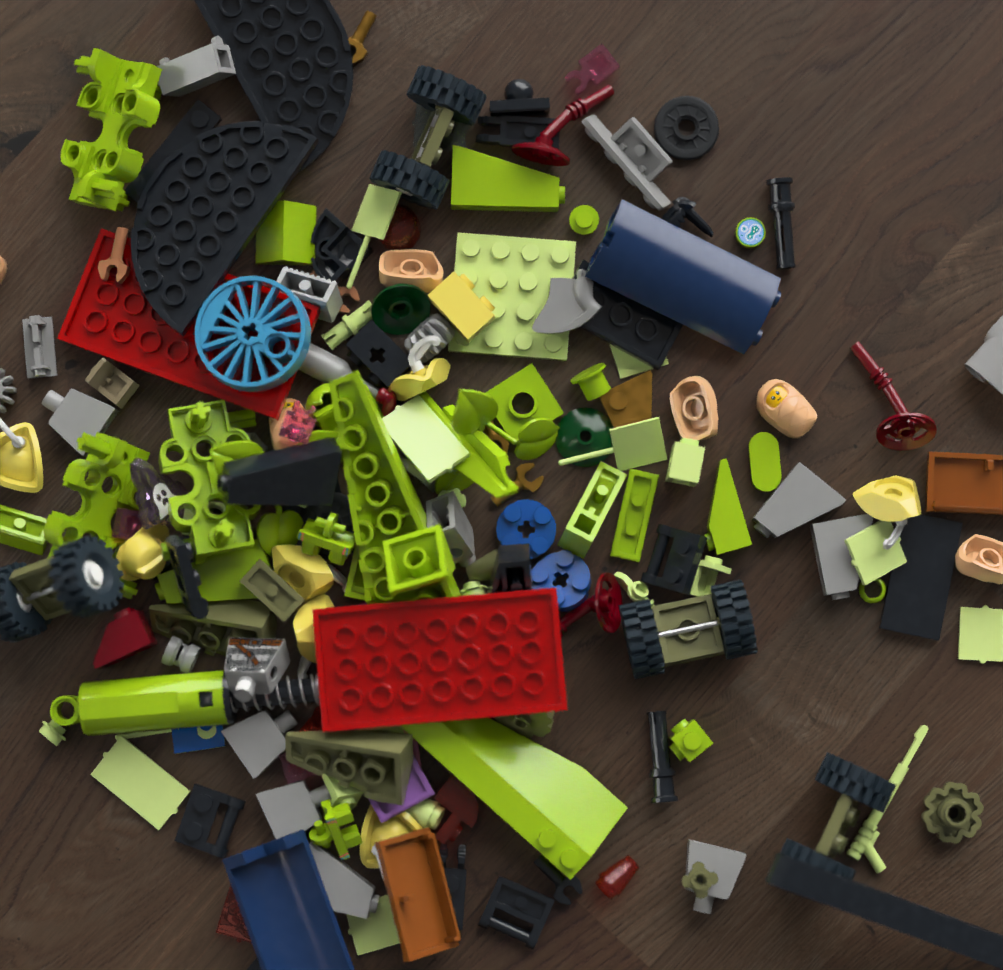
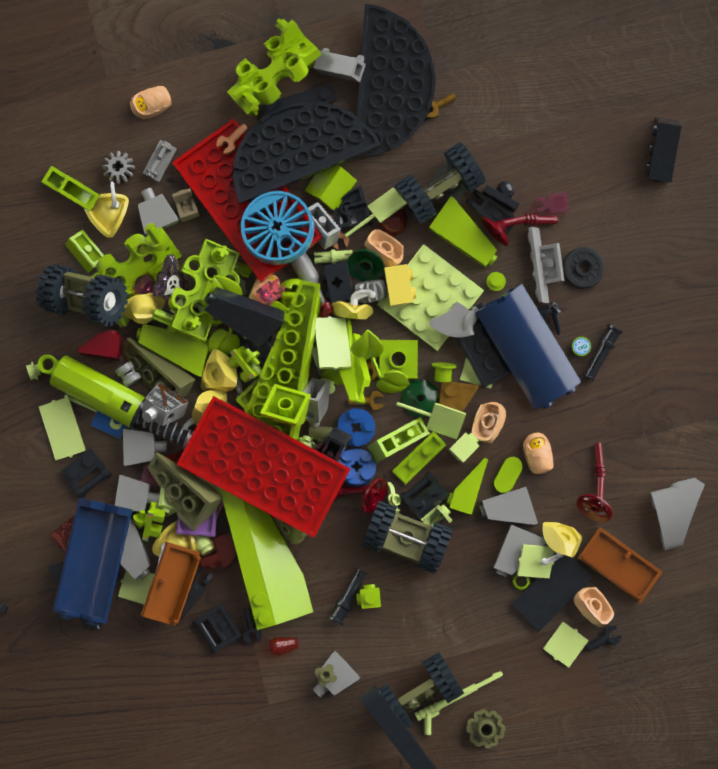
camera: 30 degrees right, 0 degrees up
(186, 577) = (157, 335): black hinge -> none
(272, 590) = (198, 371): olive plate -> none

